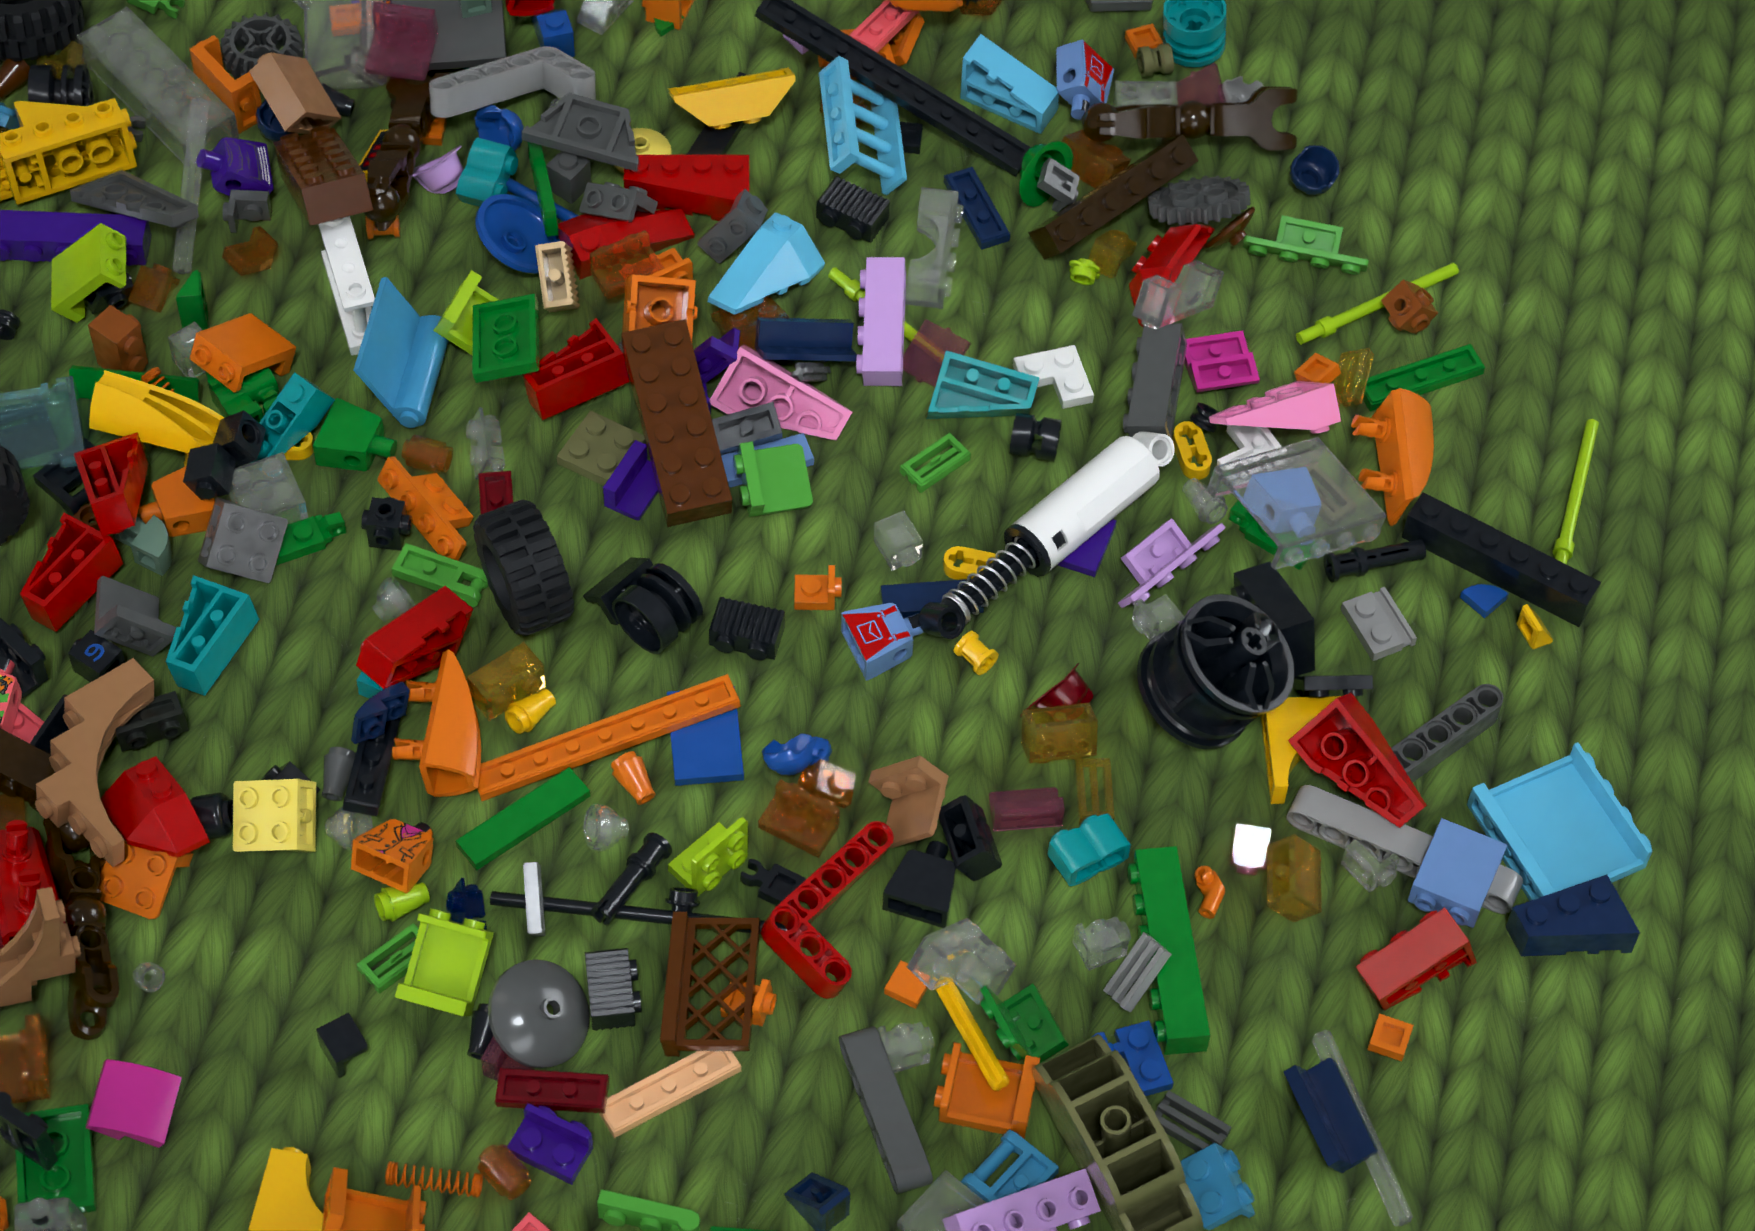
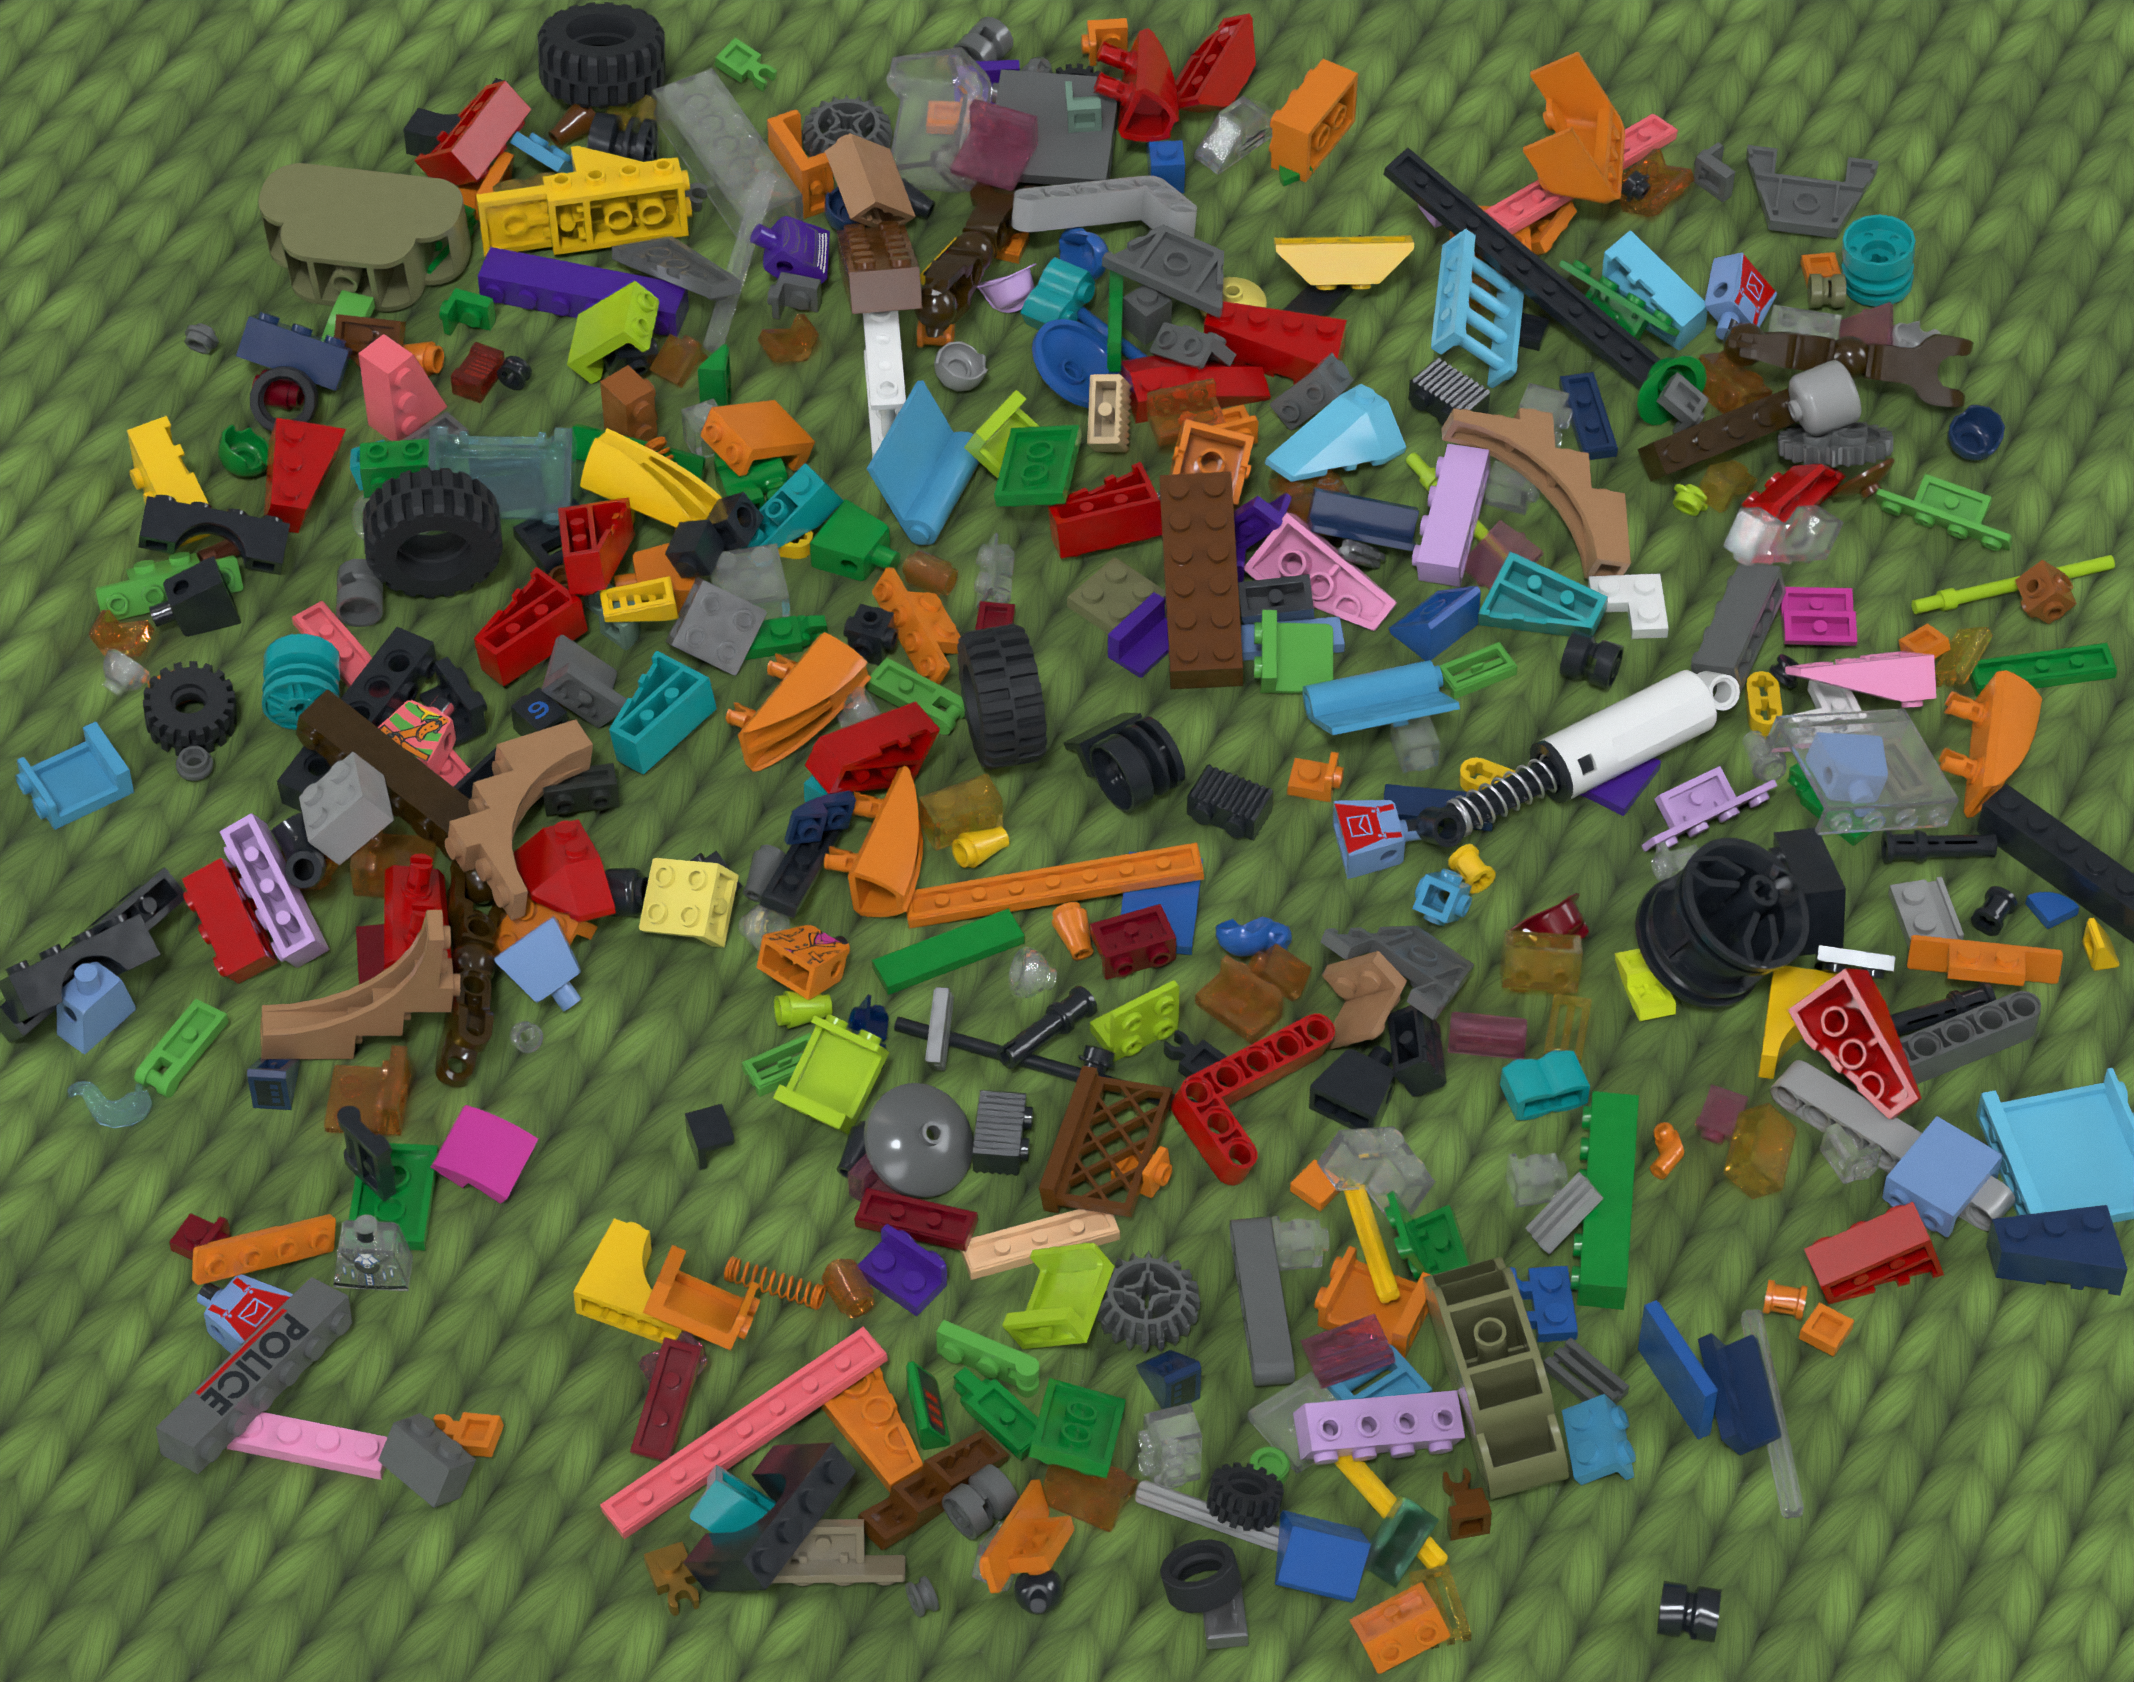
camera: 15 degrees right, 5 degrees down
(151, 904) = (543, 964): none -> medium blue torso
(174, 518) = (659, 608): none -> yellow slope
(339, 602) = (802, 702): none -> orange piece
(411, 252) = (960, 366): none -> light grey hair
(691, 779) = (1134, 941): none -> dark red bracket
(705, 1144) = (1063, 1298): none -> lime panel
(807, 1122) = (1171, 1307): none -> dark grey gear
(858, 508) = (1377, 698): none -> dark azure door
(891, 422) = (1439, 621): none -> blue slope
(948, 747) = (1427, 962): none -> dark grey wing
(950, 694) = (1431, 900): none -> dark azure brick
(972, 269) = (1563, 475): none -> medium nougat arch
(975, 1145) = (1347, 1351): none -> clear pink plate
(988, 106) = (1627, 310): none -> green bracket
(1153, 741) = (1643, 989): none -> neon yellow slope
(1184, 162) = (1824, 398): none -> light grey head
(1274, 1106) = (1677, 1369): none -> blue tile
(1348, 1016) = (1785, 1299): none -> orange bush
(1425, 708) = (1936, 1012): none -> black pin
(1437, 610) = (1997, 905): none -> black bush
(1442, 661) = (1984, 960): none -> orange bracket

